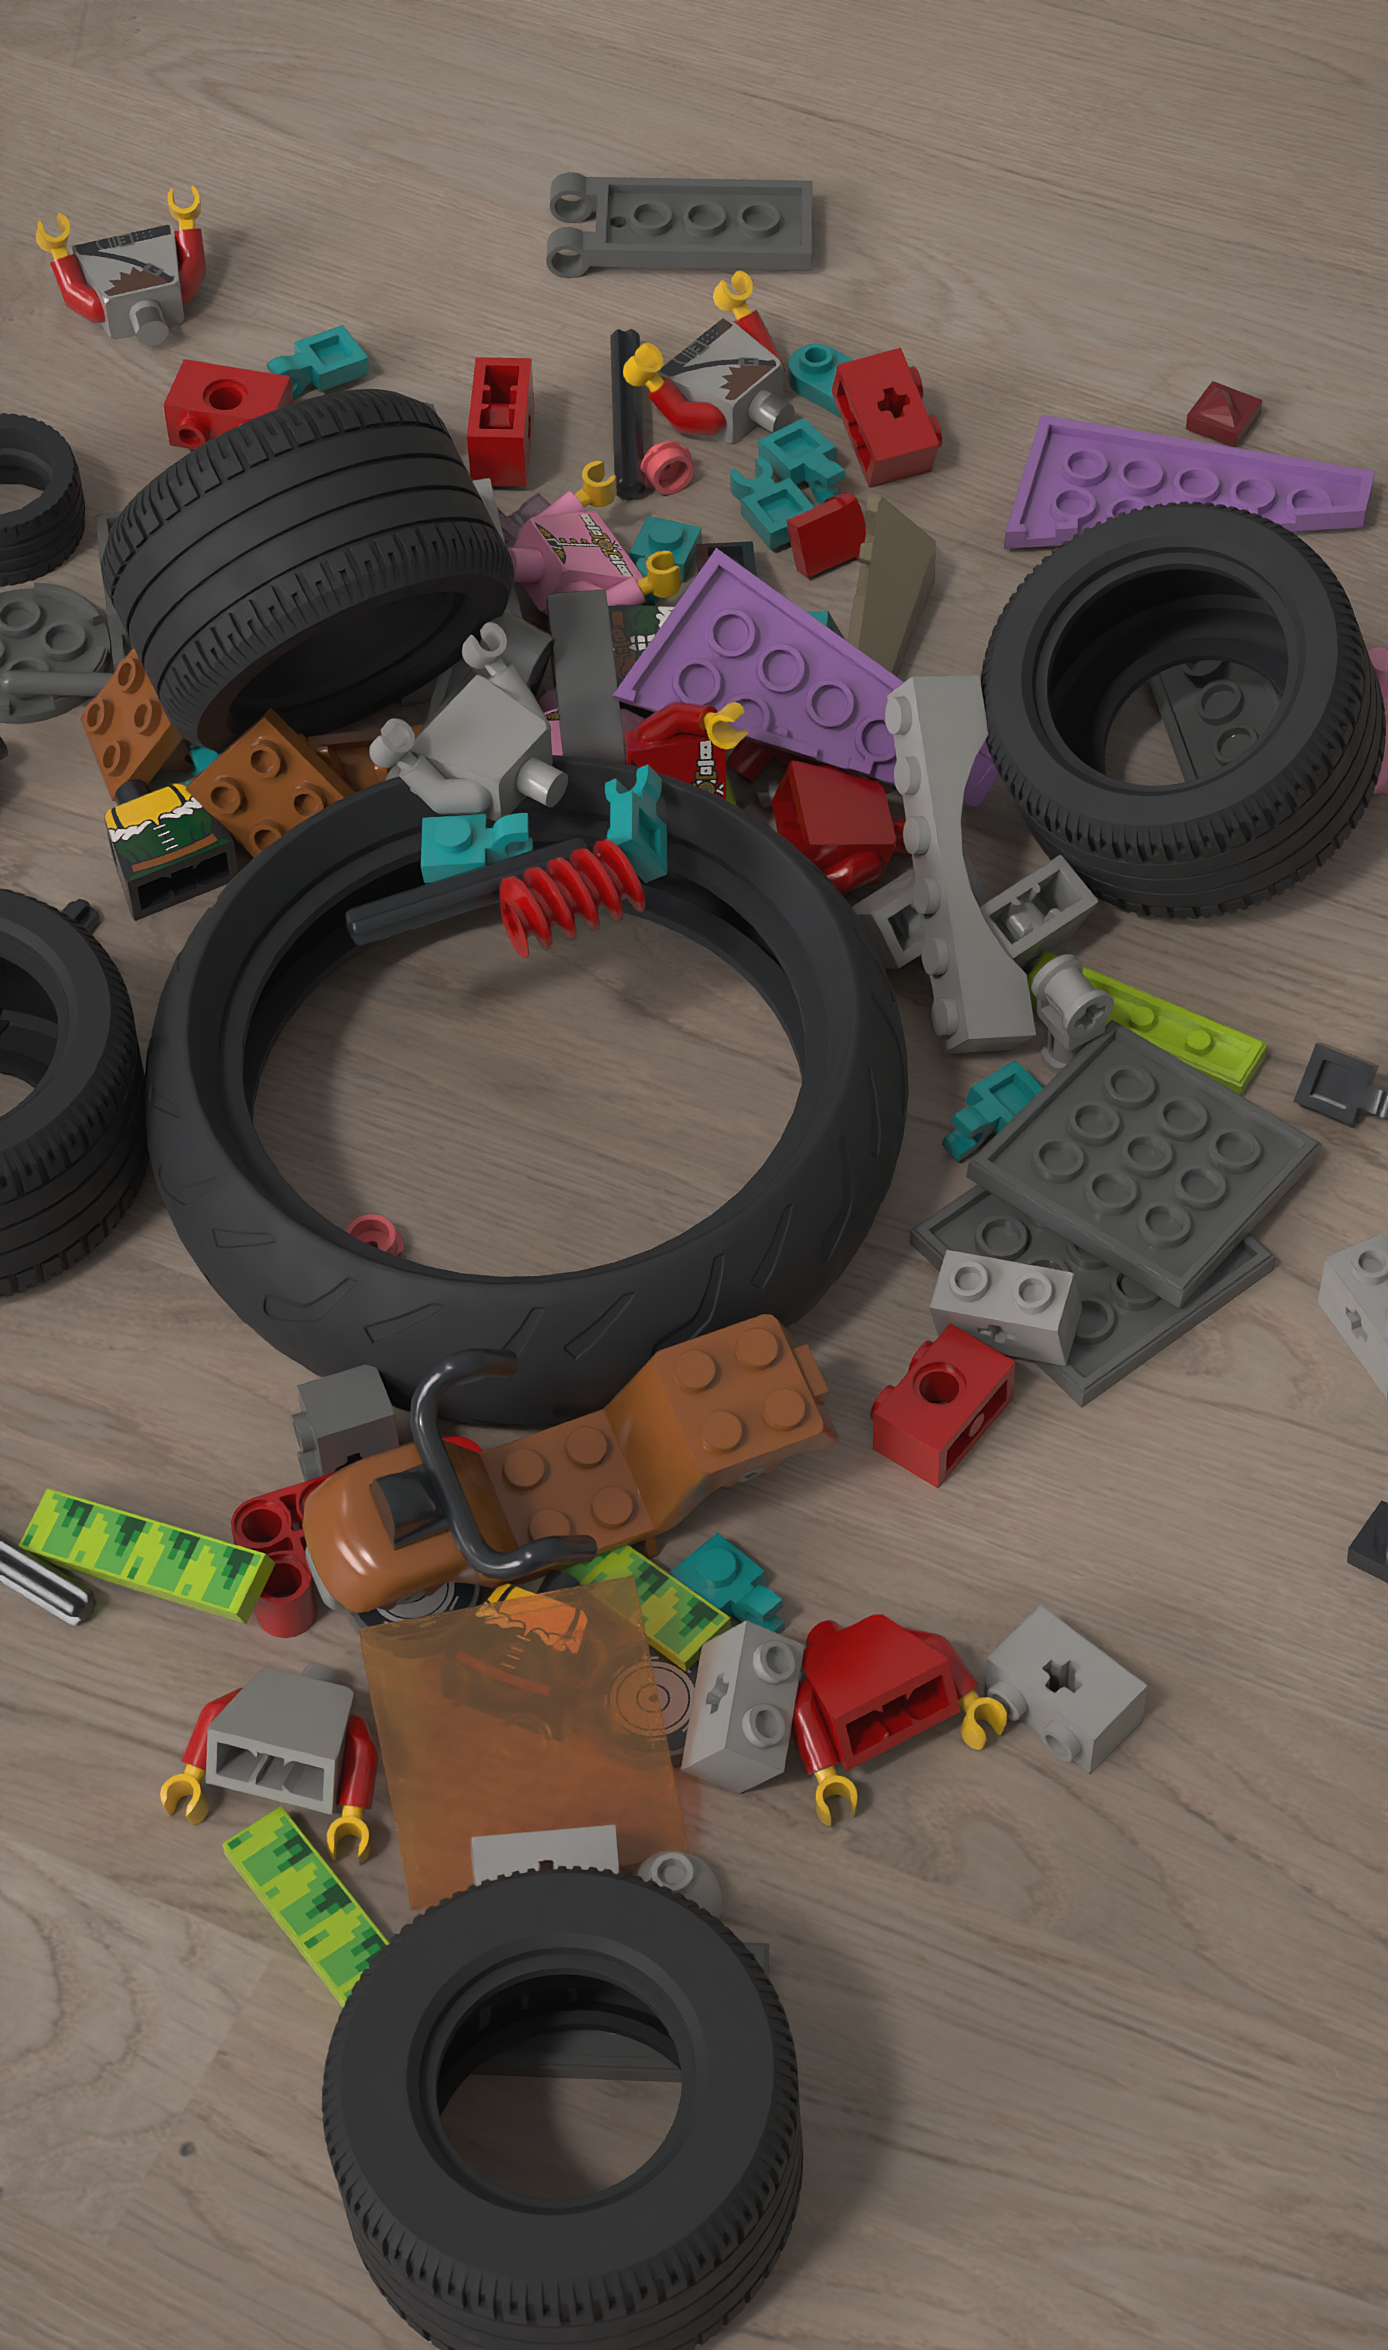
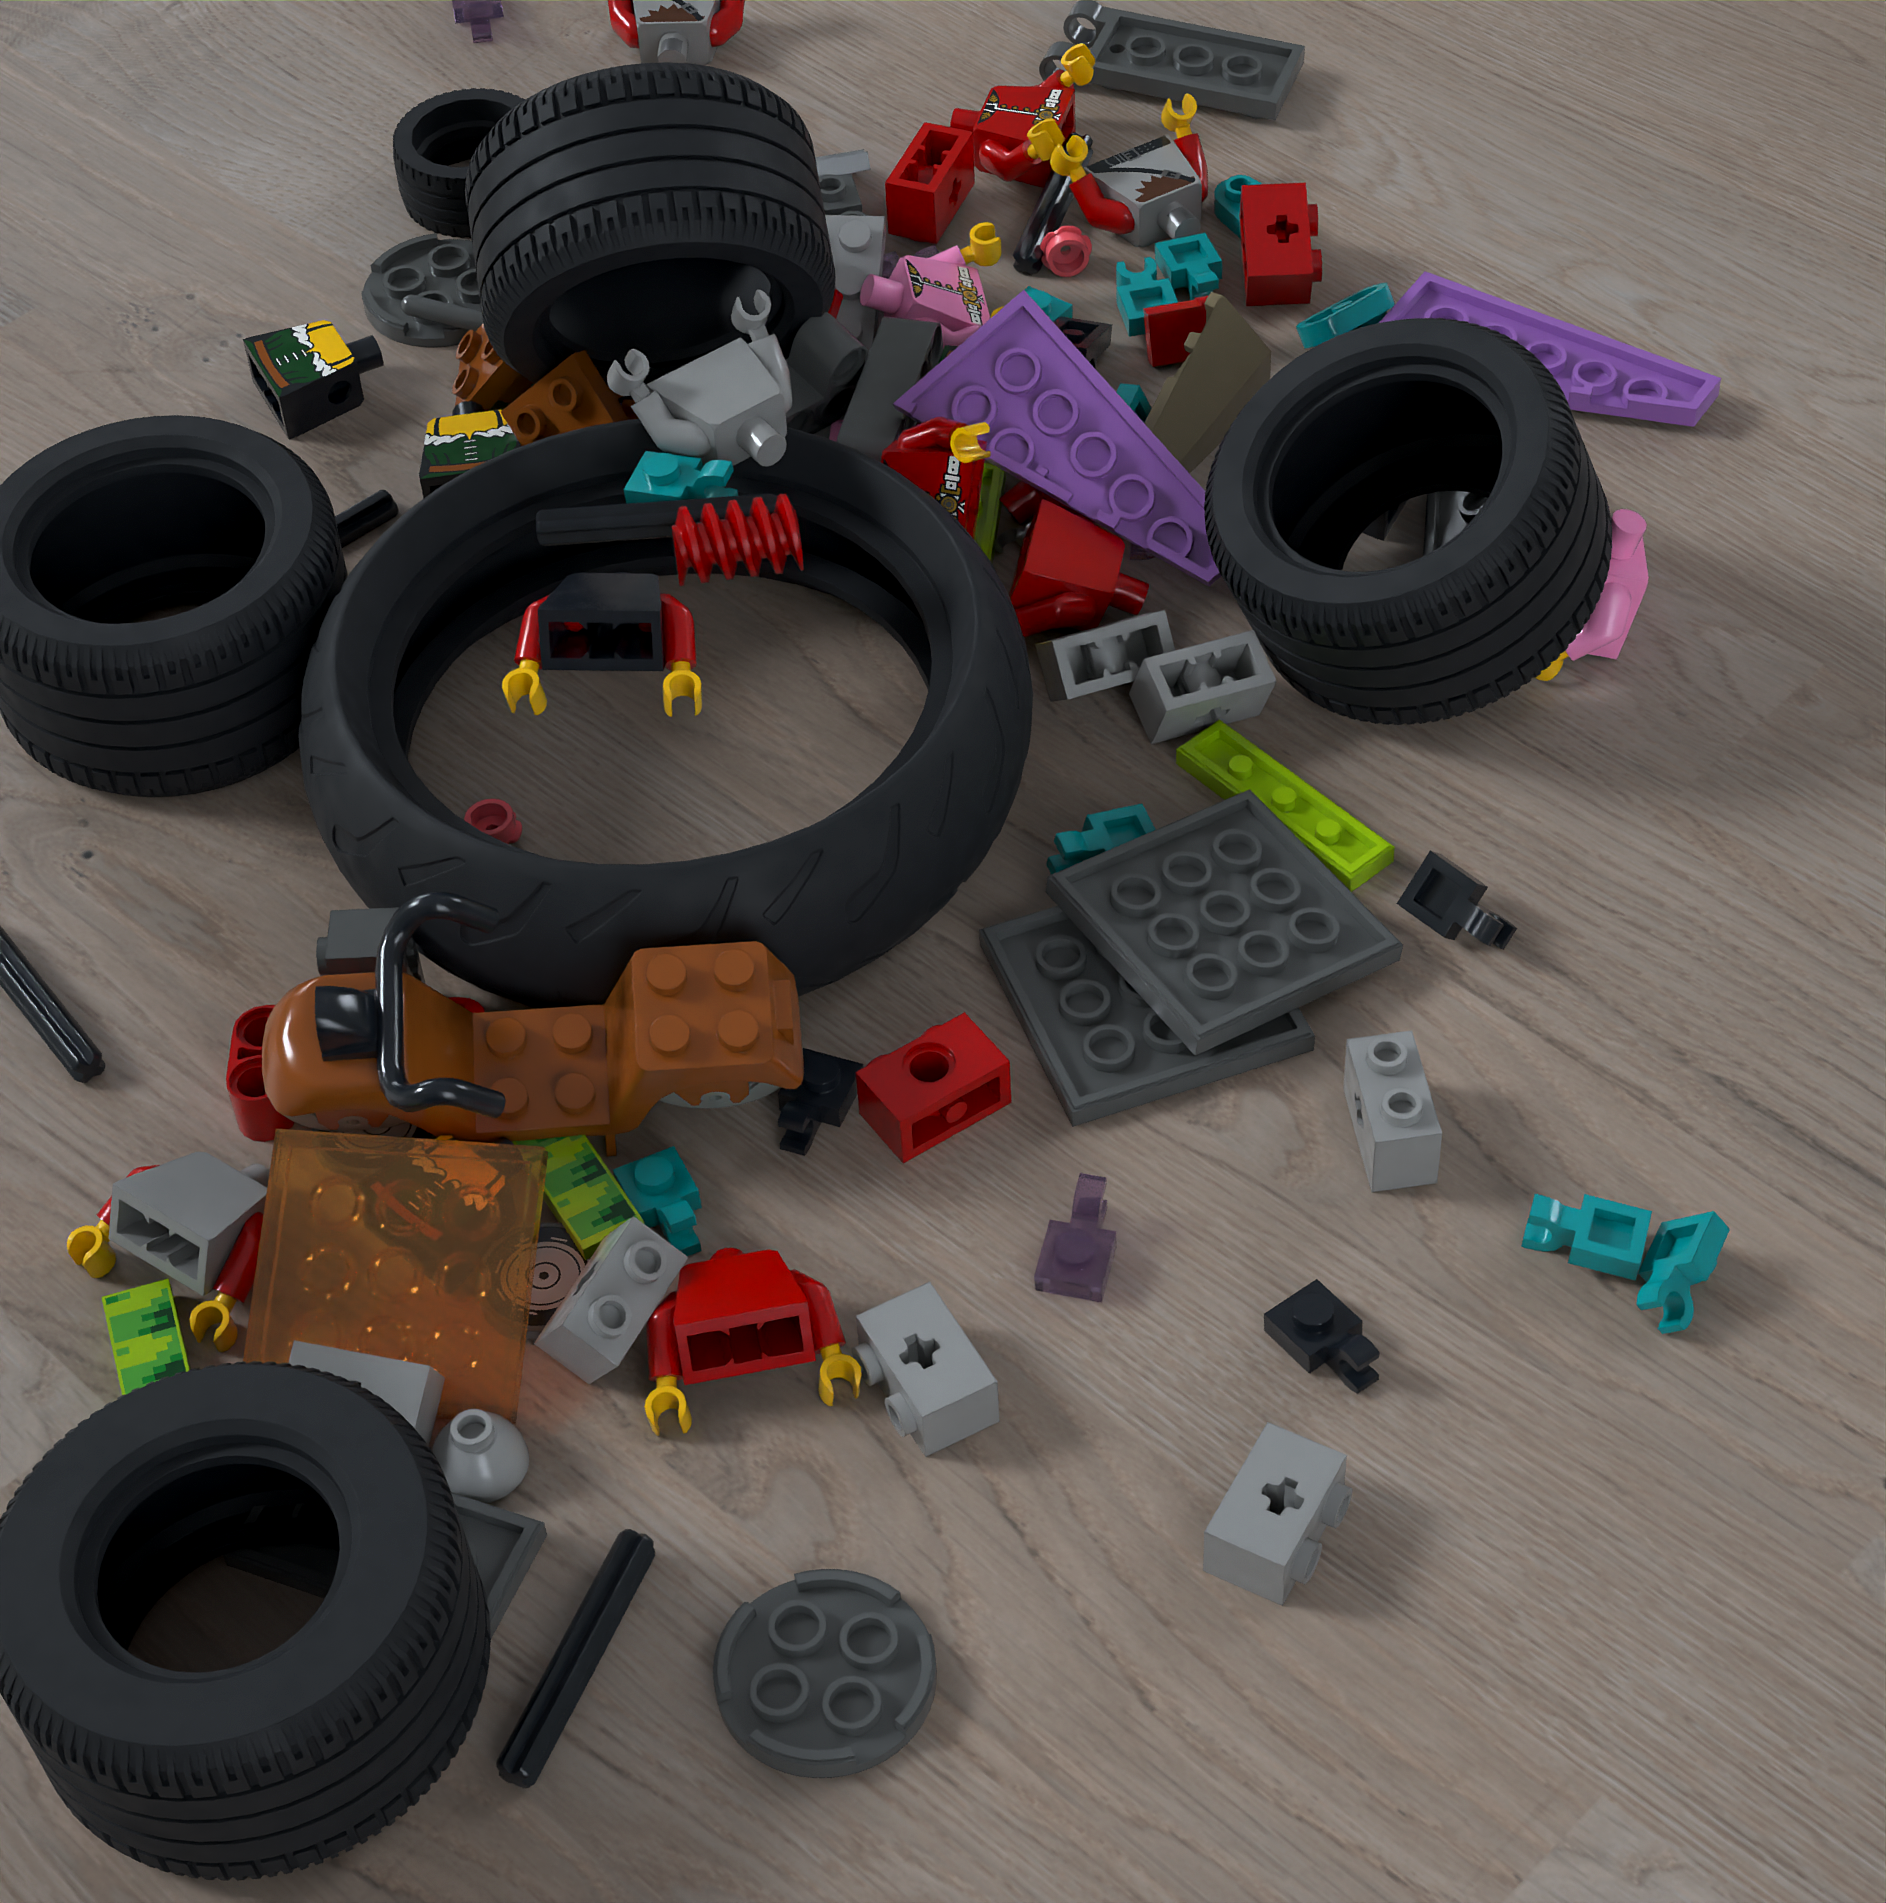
camera: 20 degrees right, 5 degrees down
(147, 1555) = (156, 1033): tile -> none
(323, 359) = (818, 108): teal plate -> none
(489, 1023) = (606, 626): none -> black torso
(569, 329) = (1025, 123): none -> red torso
(636, 825) = (827, 497): teal plate -> none
(847, 1453) = (822, 1097): none -> black plate
(861, 2065) = (575, 1659): none -> black axle
(976, 985) = (1129, 726): light grey arch -> none
(981, 481) = (1356, 310): none -> teal plate
(1008, 1305) = (1026, 1010): light grey brick -> none
(1069, 1009) = (1204, 761): light grey connector -> none
(1095, 2010) = (825, 1674): none -> dark grey tile
(1146, 1535) = (1079, 1253): none -> clear purple plate
(1224, 414) = (1603, 307): dark red tile -> none

